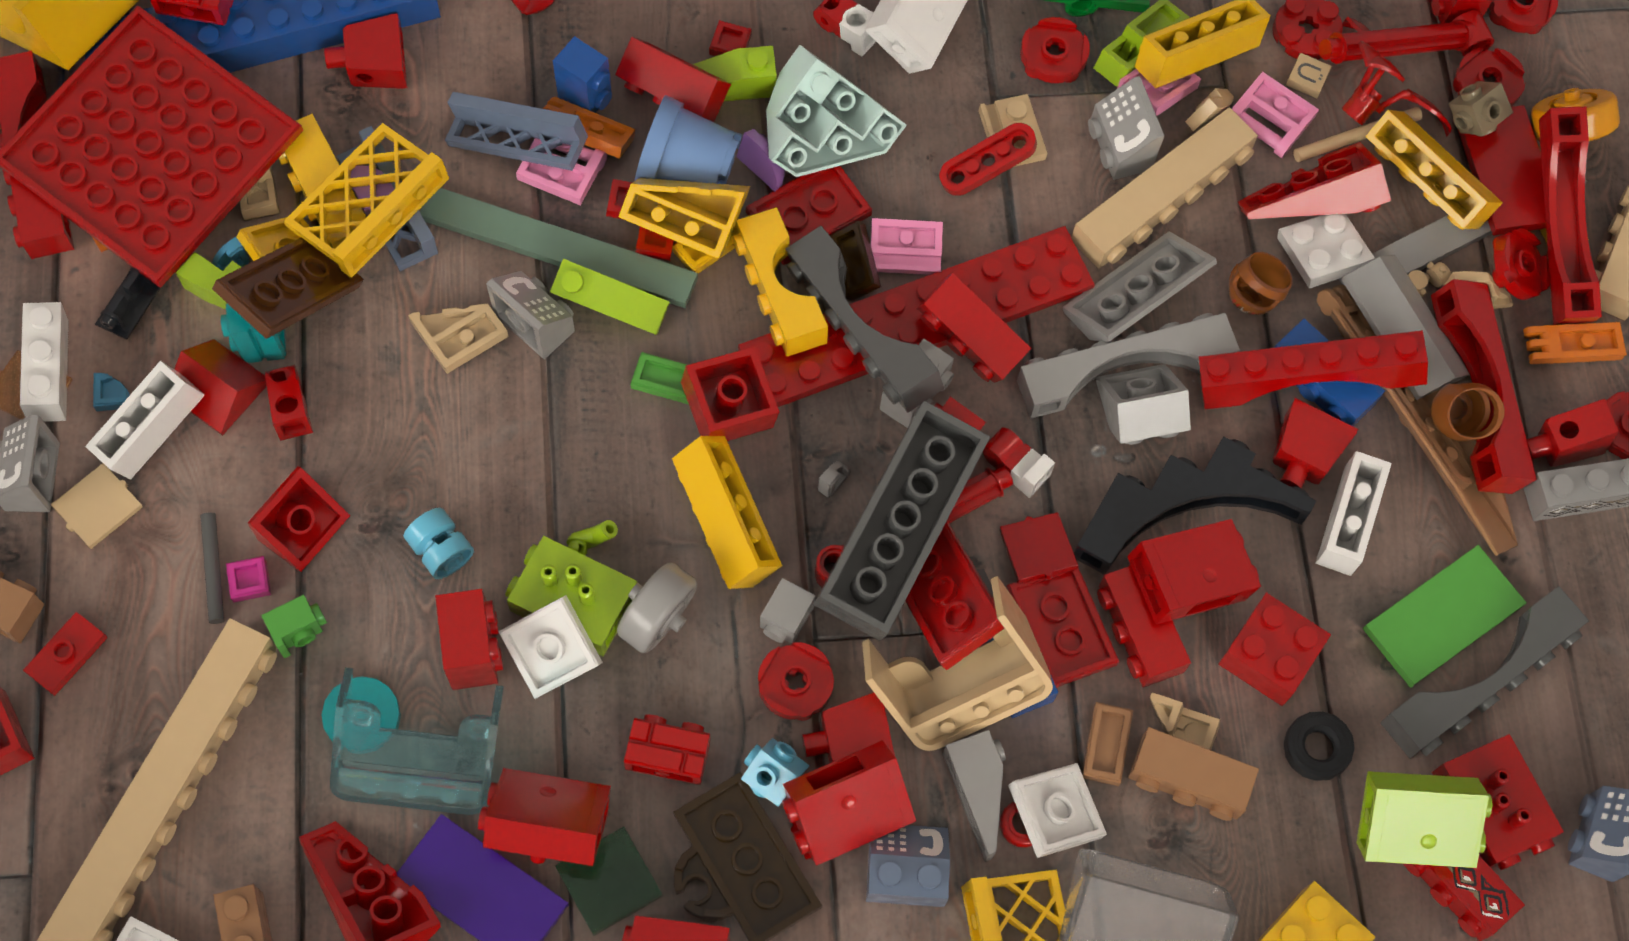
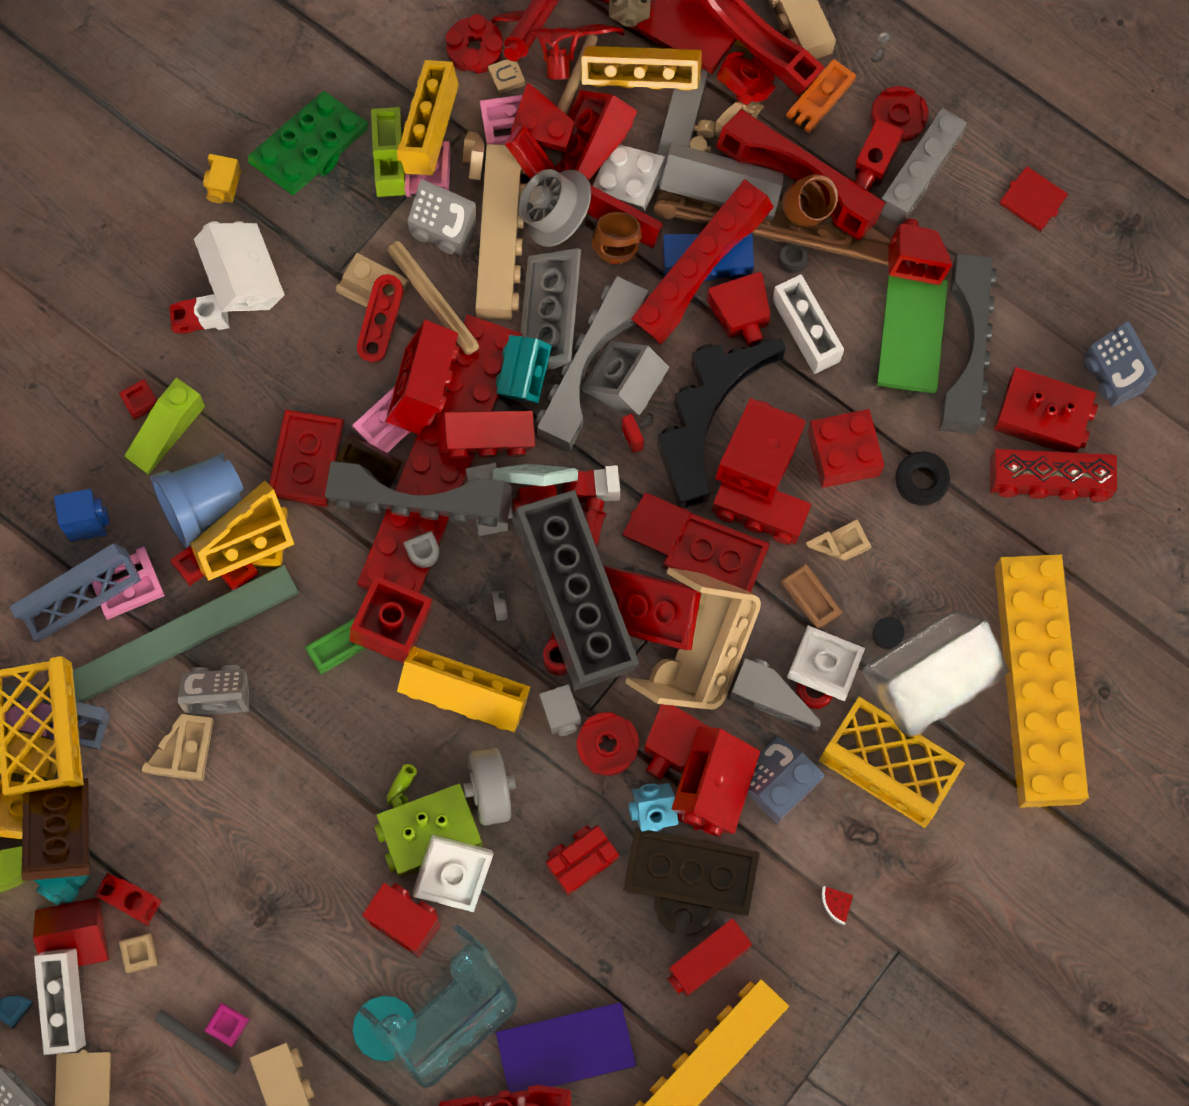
camera: 45 degrees left, 5 degrees up
(249, 452) = (138, 953): none -> tan tile
(294, 624) = (287, 1020): bright green brick -> none
(298, 519) = (220, 959): red slope -> none
(441, 547) = (307, 880): medium azure wheel -> none
(545, 817) = (559, 969): red piece -> none
(601, 131) = (130, 535): orange hinge -> none
(609, 296) = (250, 633): lime slope -> none
(613, 885) = (628, 966): clear green tile -> none
(662, 74) = (136, 461): red brick -> none
(755, 155) = (246, 454): medium lavender brick -> none
(795, 317) = (379, 533): yellow arch -> none
(818, 369) = (422, 550): none -> light grey tile
(824, 118) = (255, 391): light aqua brick -> none
(968, 233) = (423, 377): none -> red brick
(976, 399) = (535, 474): none -> light aqua tile
(1050, 186) = (432, 297): none -> tan axle
(1054, 68) = (347, 224): red plate -> none
(1062, 310) = (523, 369): none -> teal brick
(1098, 453) = (632, 433): none -> red tile
(1142, 844) = (888, 633): none -> black tile
(1193, 774) = (875, 566): medium nougat brick -> none
(1233, 206) = (555, 205): none -> light grey piece
(1256, 151) = (528, 152): none -> red tile
(1275, 240) = (603, 203): none -> red tile
(1296, 134) = (544, 120): none -> red wing
(1402, 451) = (793, 258): none -> dark grey tile
(1423, 819) = (1024, 464): lime piece -> none
(1520, 552) = (918, 254): none -> red torso

